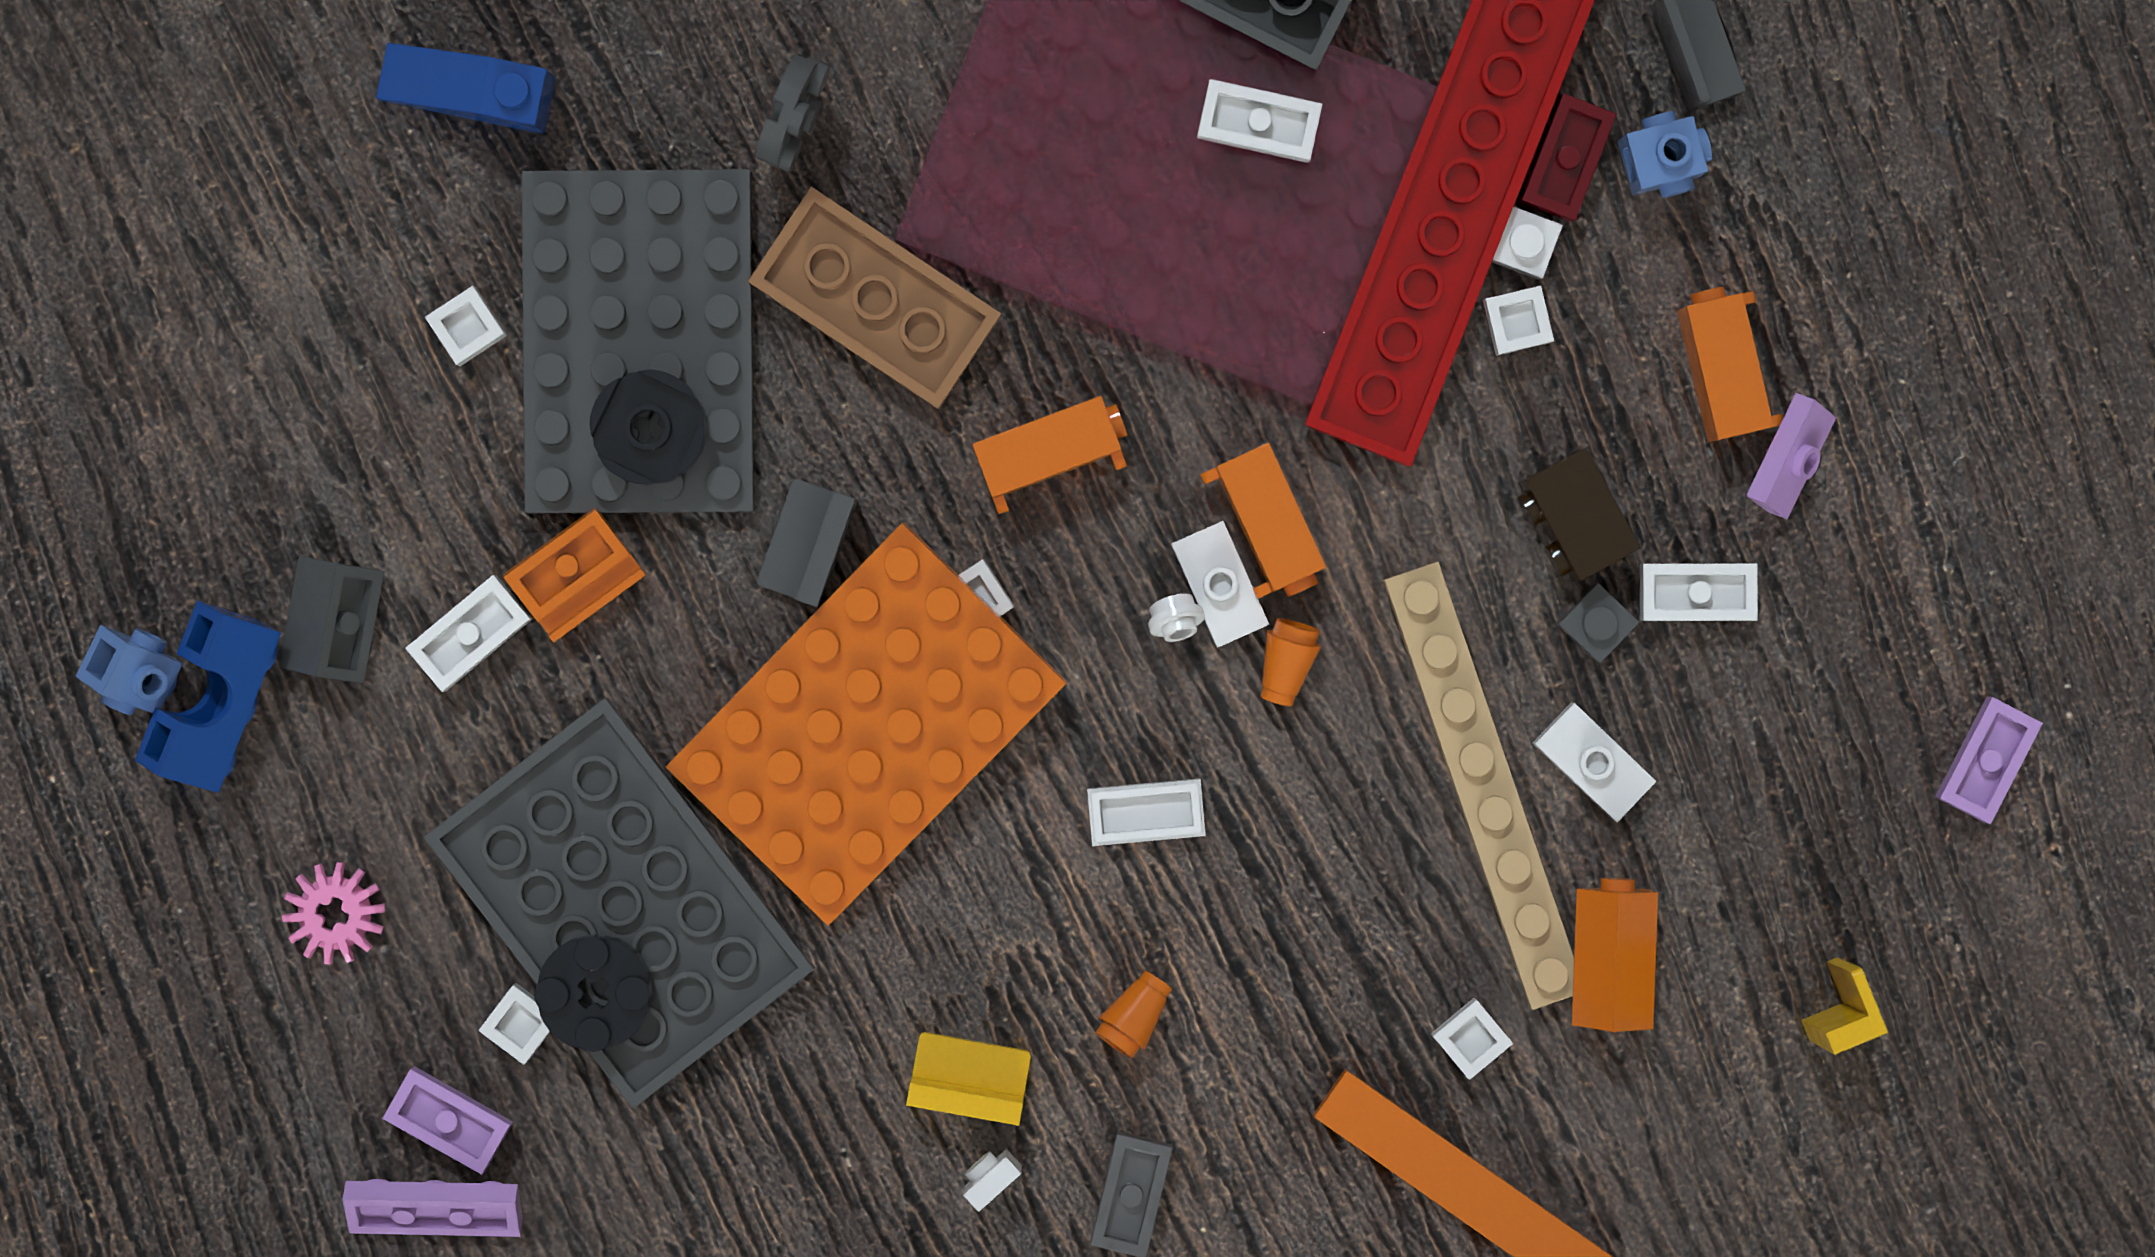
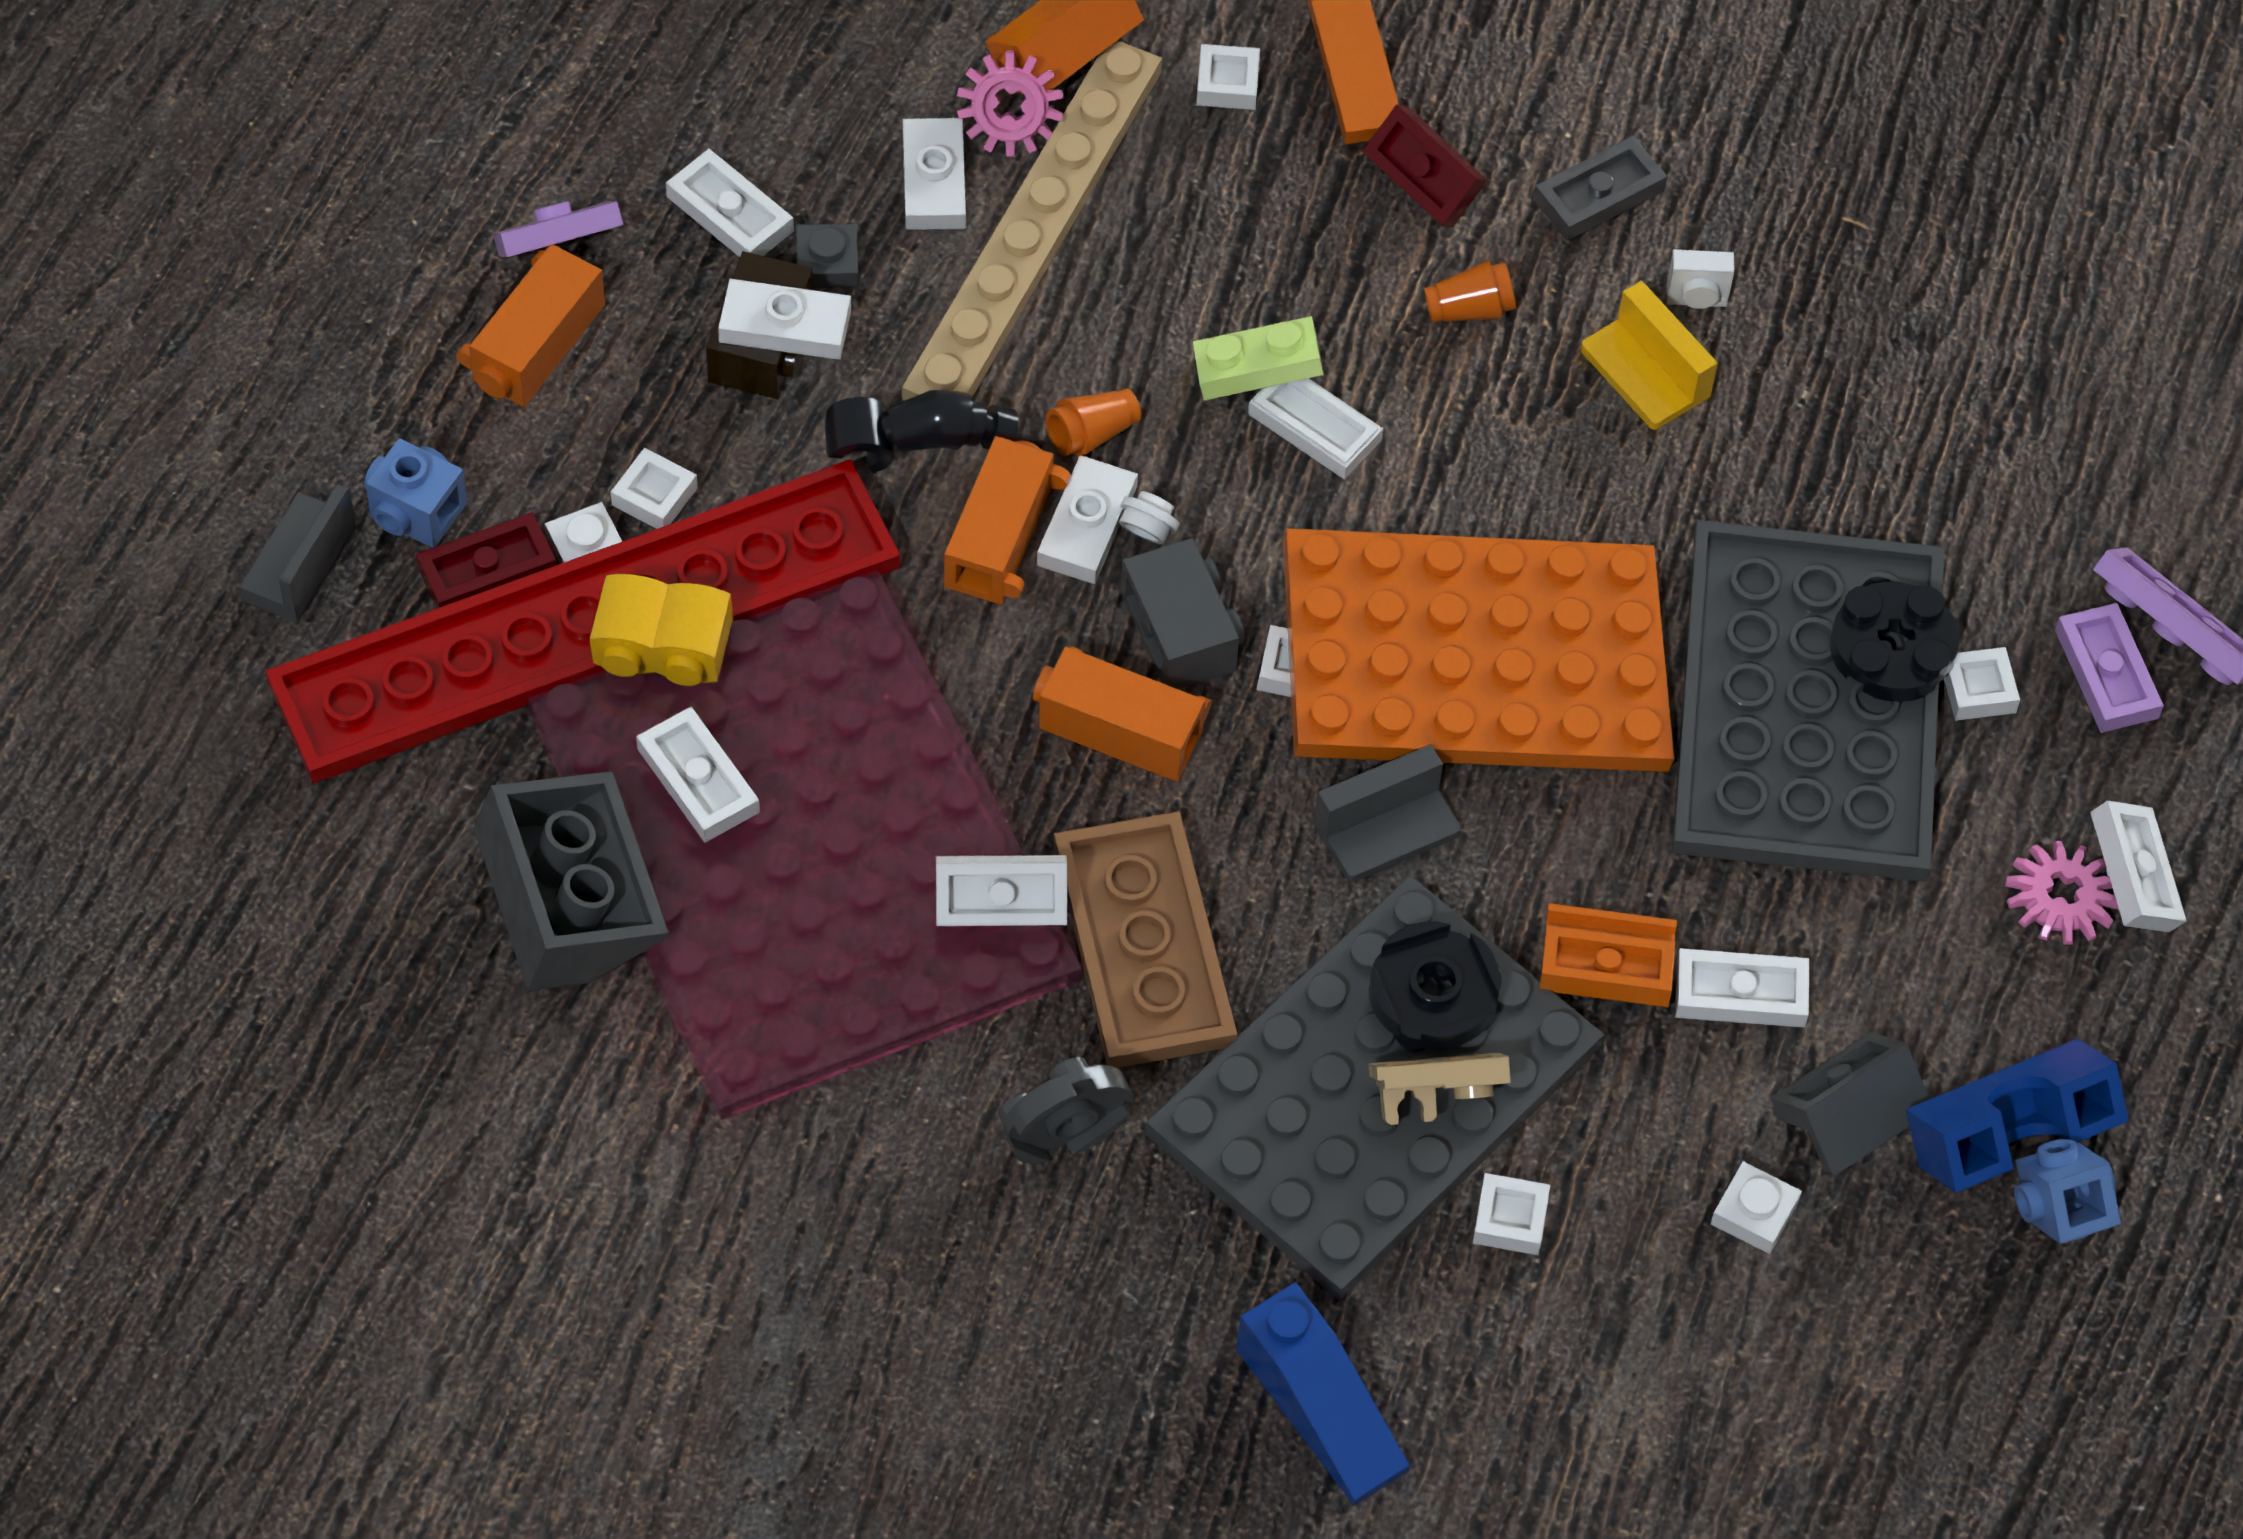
camera: 140 degrees left, 30 degrees down
(295, 973) = (2138, 866): none -> white plate
(325, 484) = (1756, 1207): none -> white plate
(583, 361) = (1468, 1076): none -> tan plate
(982, 224) = (1001, 890): none -> white plate
(1080, 561) = (1181, 614): none -> dark grey brick
(1225, 817) = (1257, 358): none -> yellowish green plate
(1265, 1092) = (1424, 165): none -> dark red plate
(1384, 534) = (915, 424): none -> black piece
(1390, 199) = (661, 629): none -> yellow brick
(1552, 515) = (784, 319): none -> white plate
(1578, 846) = (1008, 126): none -> bright pink gear

